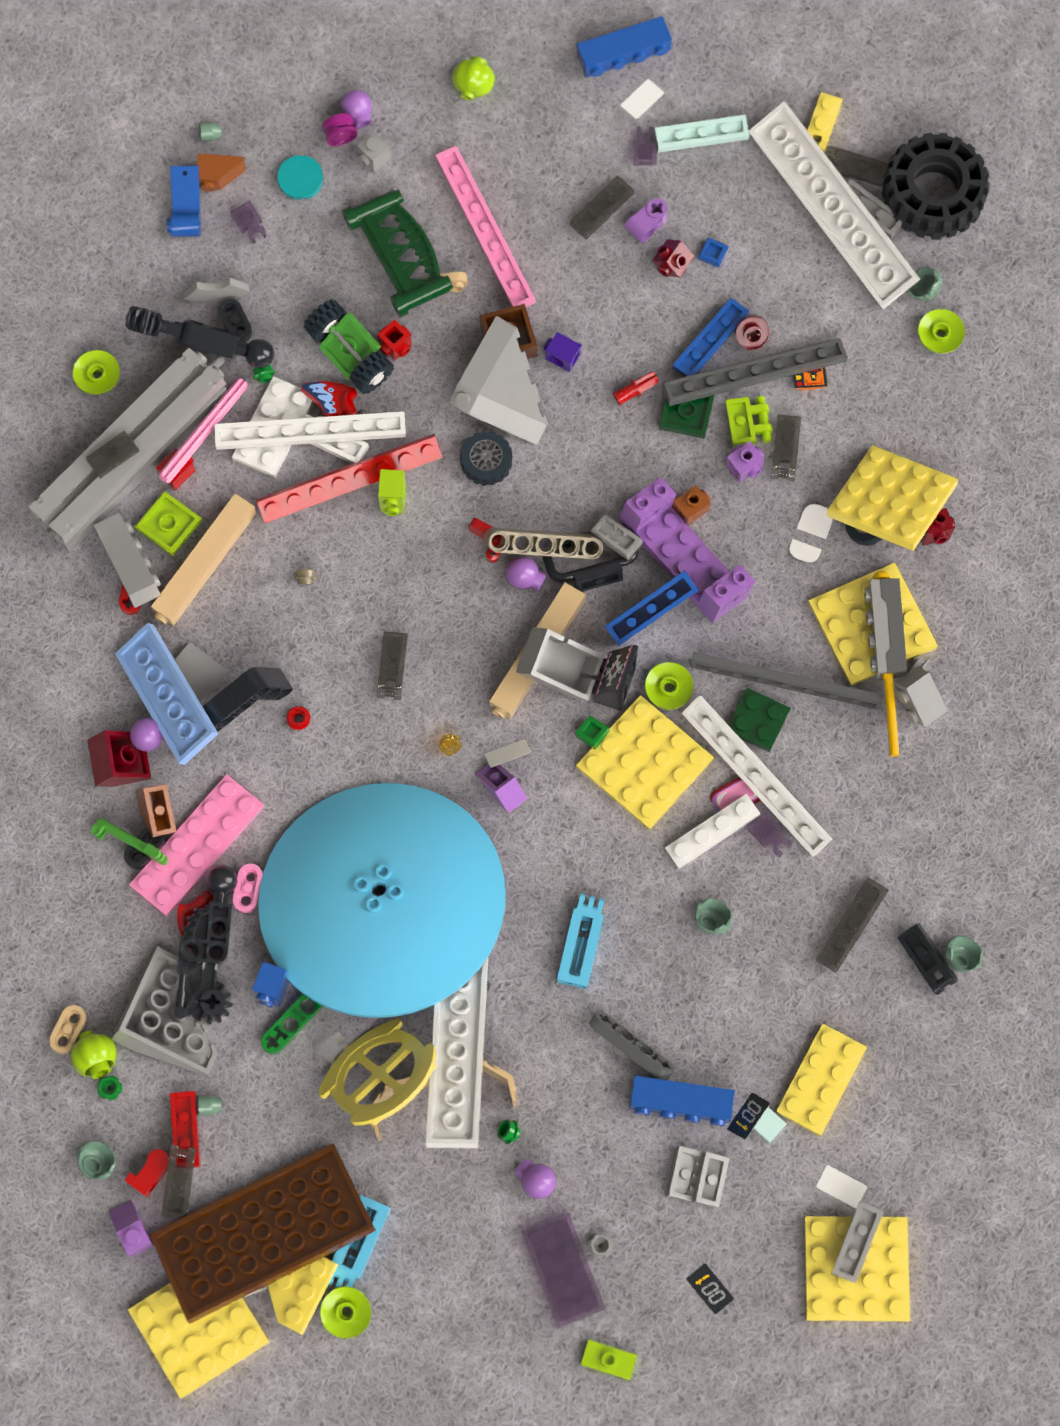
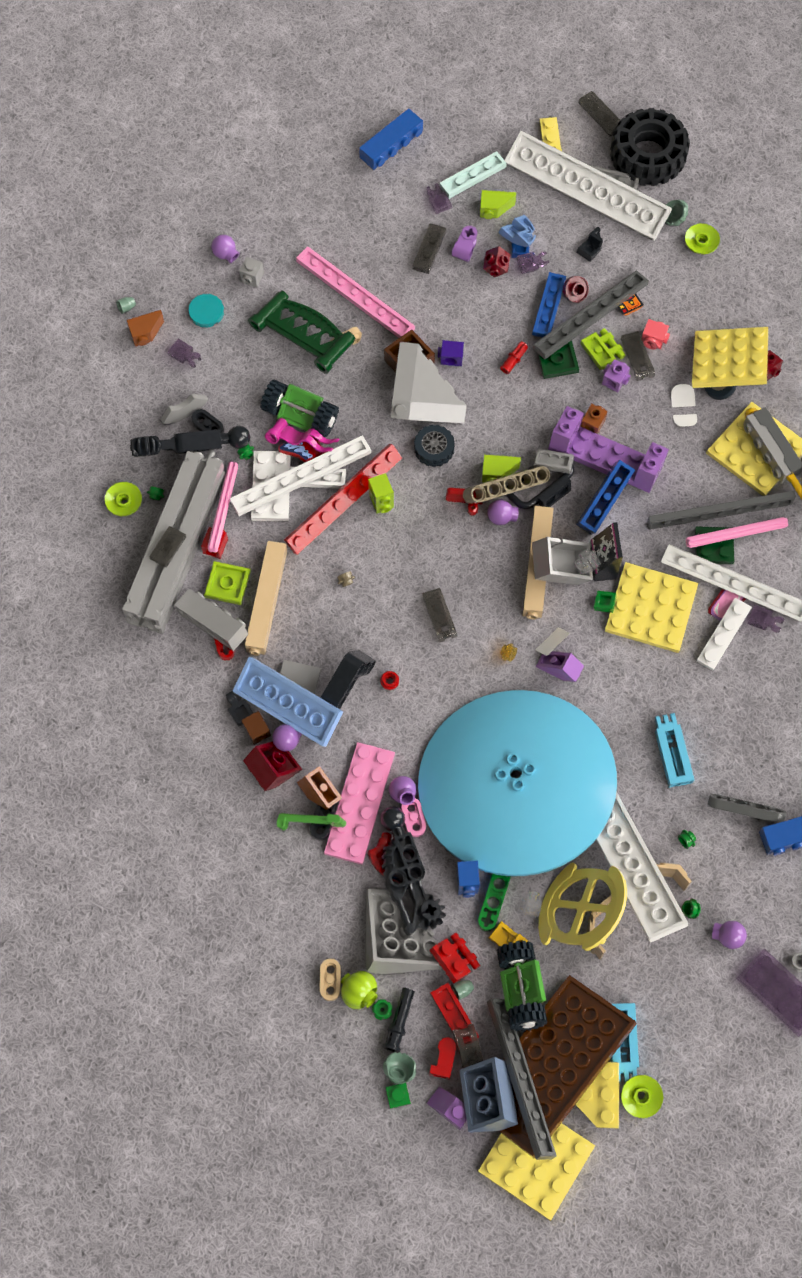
camera: 25 degrees left, 5 degrees down
(81, 1189) = (398, 1095): none -> green plate
(112, 681) = (239, 709): none -> black plate
(114, 1117) = (397, 1030): none -> black pin
(120, 708) = (256, 727): none -> reddish brown panel
(137, 381) = (156, 493): none -> green plate
(173, 1234) = (488, 1096): none -> sand blue slope
(186, 209) = (132, 357): blue door -> none
(209, 1069) = (450, 960): none -> red plate
(217, 1232) = (522, 1082): none -> dark grey tile
(249, 852) = (403, 790): none -> medium lavender piece
(271, 1131) = (522, 986): none -> plate
(286, 1072) = (503, 935): none -> yellow slope
(326, 378) = (294, 437): none -> dark pink flag
(339, 129) = (220, 266): magenta wheel -> none
(394, 334) = (330, 390): red brick -> none
(473, 78) = (296, 198): lime plant -> none
(545, 1050) = (687, 839): none -> green plate
(547, 516) = (499, 466): none -> lime slope
(586, 677) = (587, 562): none -> clear plate
(642, 99) = (419, 169): white sticker -> none
(669, 674) = (646, 540): lime dish -> none
(710, 182) = (496, 203): none -> lime slope
(713, 916) = (756, 692): sand green hair -> none
(714, 275) = (530, 262): none -> clear purple plate
(721, 231) = (519, 231): none -> medium blue brick
(789, 716) = (736, 532): none -> bright pink axle
(801, 285) = (591, 246): none -> black slope
(819, 430) = (655, 334): none -> coral brick
(857, 165) = (591, 155): clear smoke plate -> none
(899, 112) = (599, 112): none -> clear smoke plate

